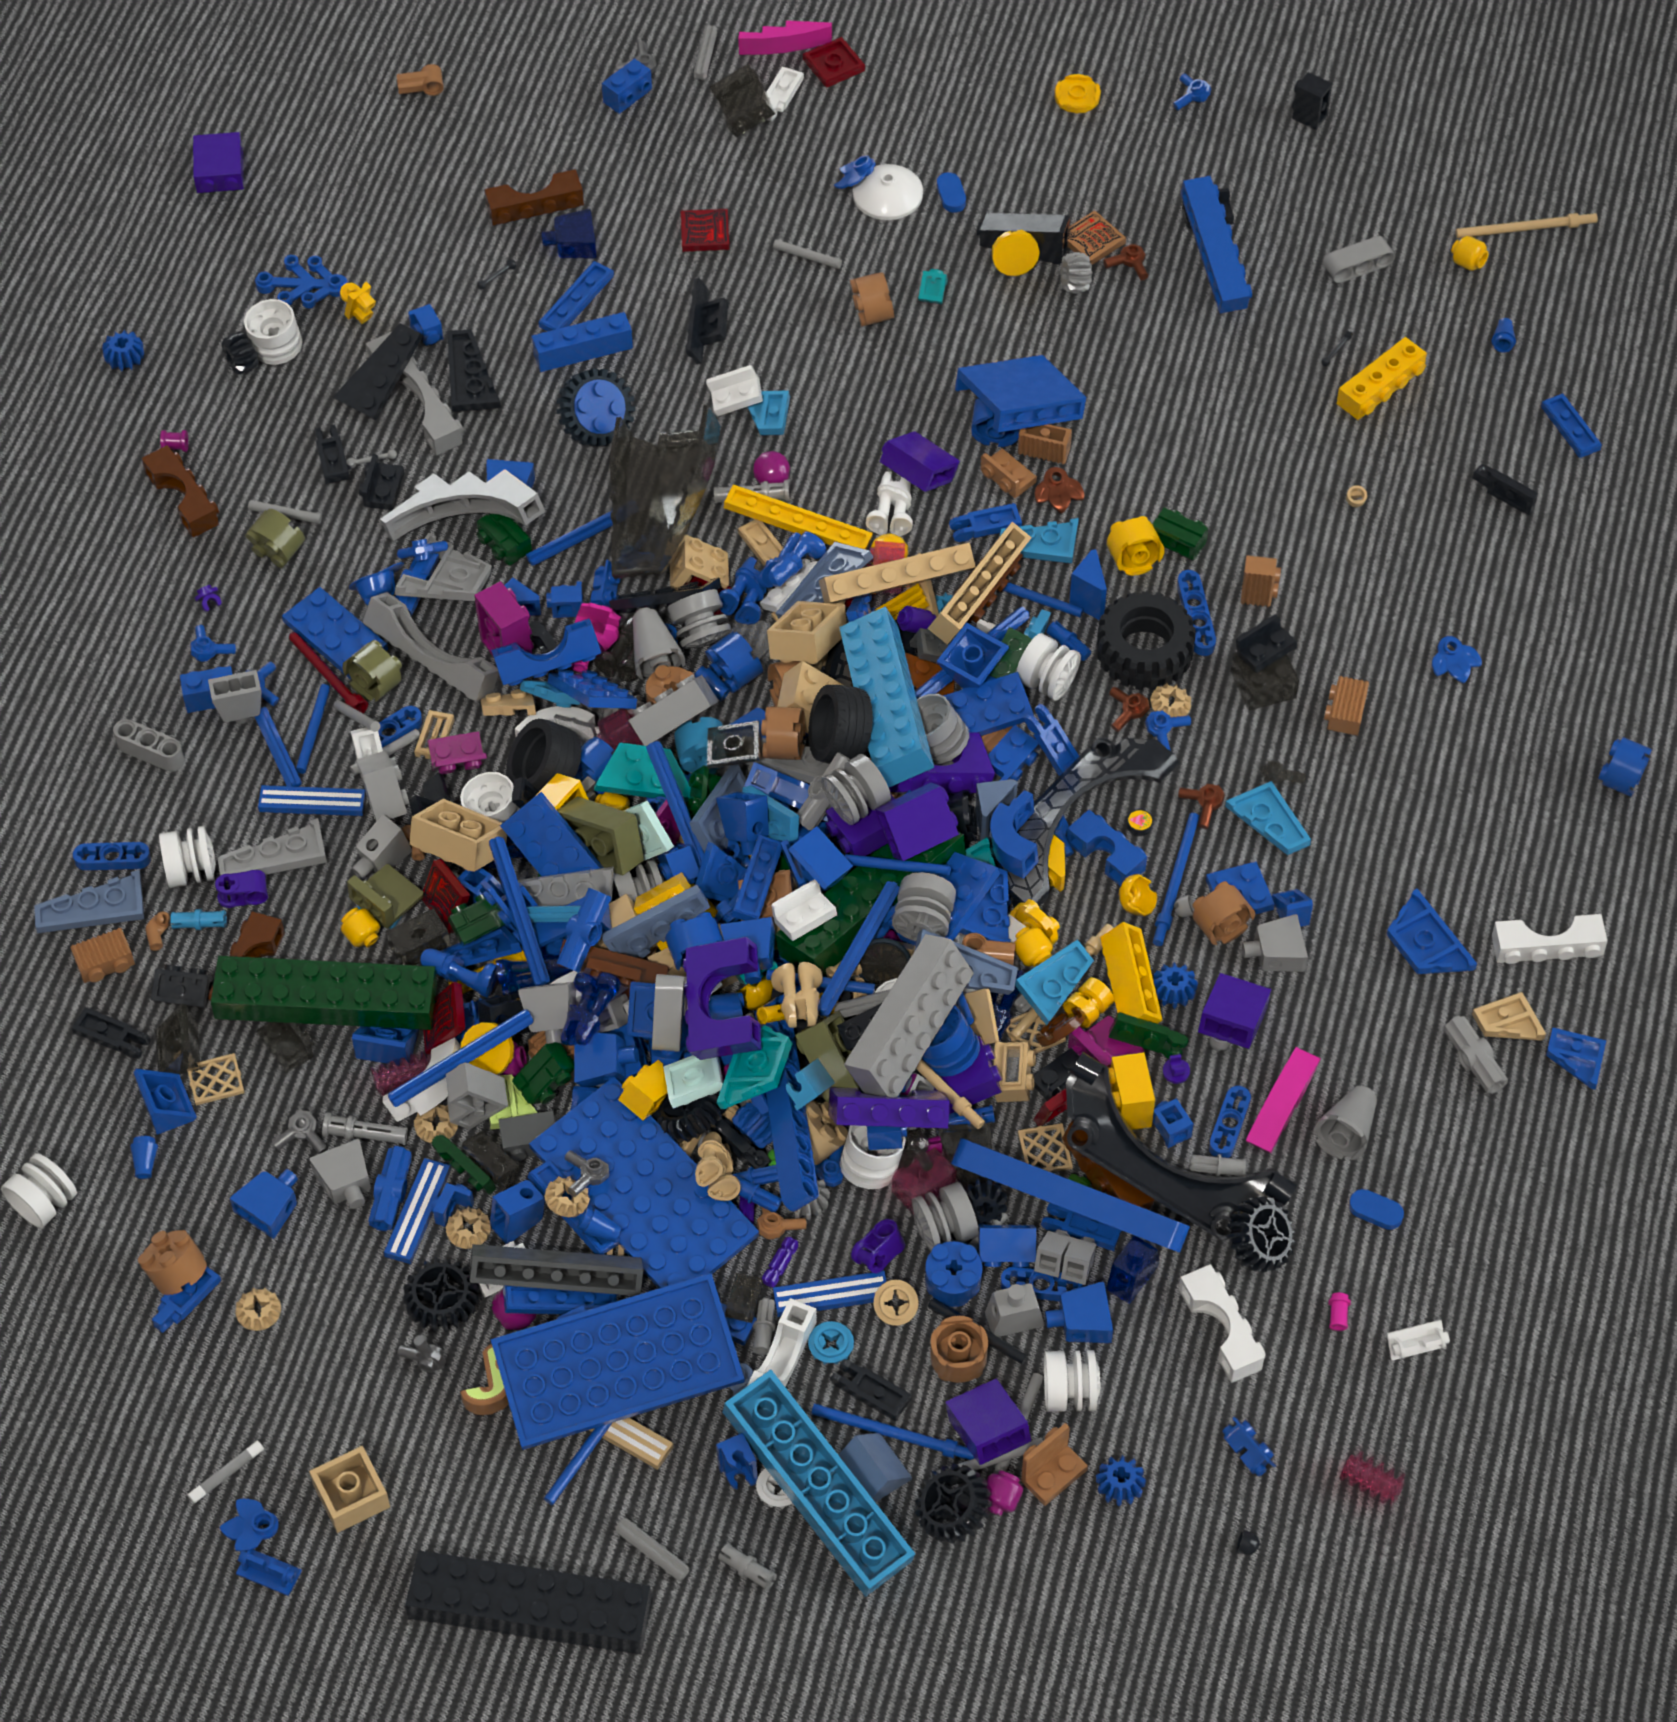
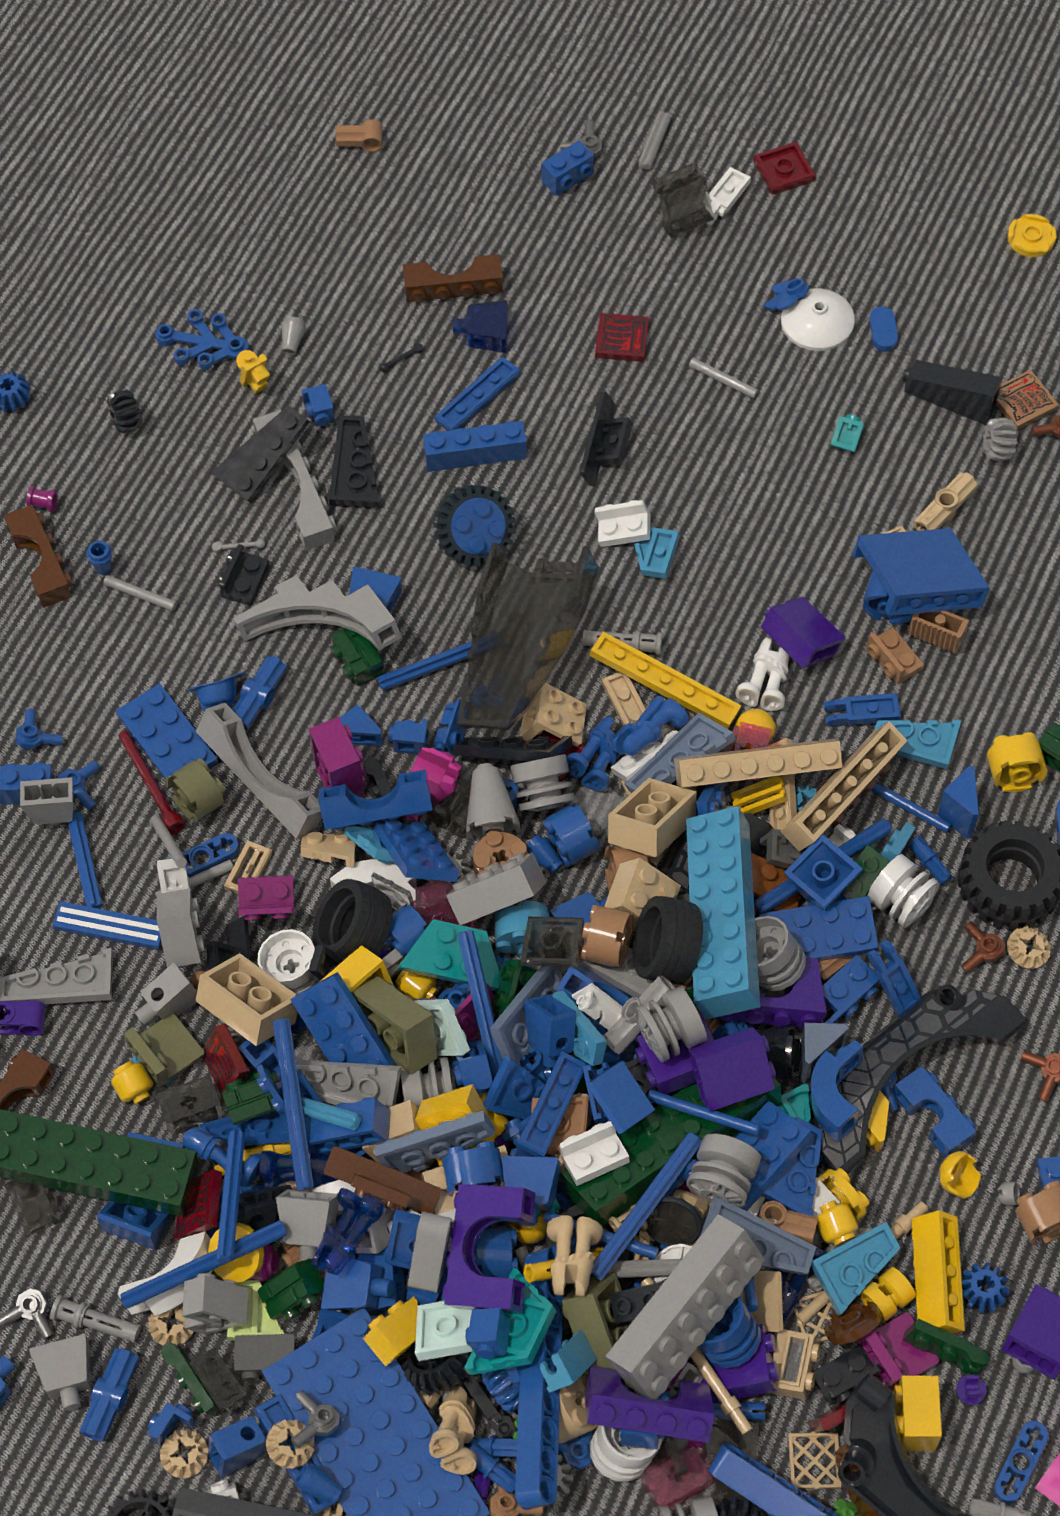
camera: 10 degrees right, 5 degrees up
(208, 593) = (43, 674): dark purple plate -> none
(218, 162) = (141, 198): dark purple brick -> none
(242, 483) = (100, 557): none -> blue cone
(273, 331) = (161, 393): white wheel -> none
(275, 537) = (121, 622): olive brick -> none
(313, 728) = (124, 843): blue bar -> none
(332, 456) = (198, 538): black hinge -> none
(388, 264) = (292, 333): none -> light grey cone
(396, 1075) = (141, 1264): clear pink piece -> none
(417, 1211) = (133, 1424): blue tile -> none
(422, 550) = (268, 661): blue piece -> none
(453, 579) = (298, 697): light grey wing -> none
(475, 996) = (231, 1195): none -> blue axle
(584, 930) = (355, 1143): blue piece -> none
(733, 1066) = (488, 1332): none -> blue brick
(771, 467) = (647, 616): magenta hair -> none
(785, 791) = (598, 1005): none -> white hinge
(793, 37) = (734, 137): dark pink slope -> none
(872, 299) = (781, 440): medium nougat brick -> none
(914, 618) = (769, 816): dark purple brick -> none
(1015, 252) = (939, 408): yellow tile -> none
(1035, 333) = (953, 495): none -> tan piece
(1058, 492) = (945, 686): copper plate -> none
(1139, 822) = (974, 1085): tile -> none
(1160, 724) = (1013, 973): blue piece -> none
(1164, 919) = (984, 1204): blue bar -> none
(1180, 1127) = (968, 1458): blue brick -> none

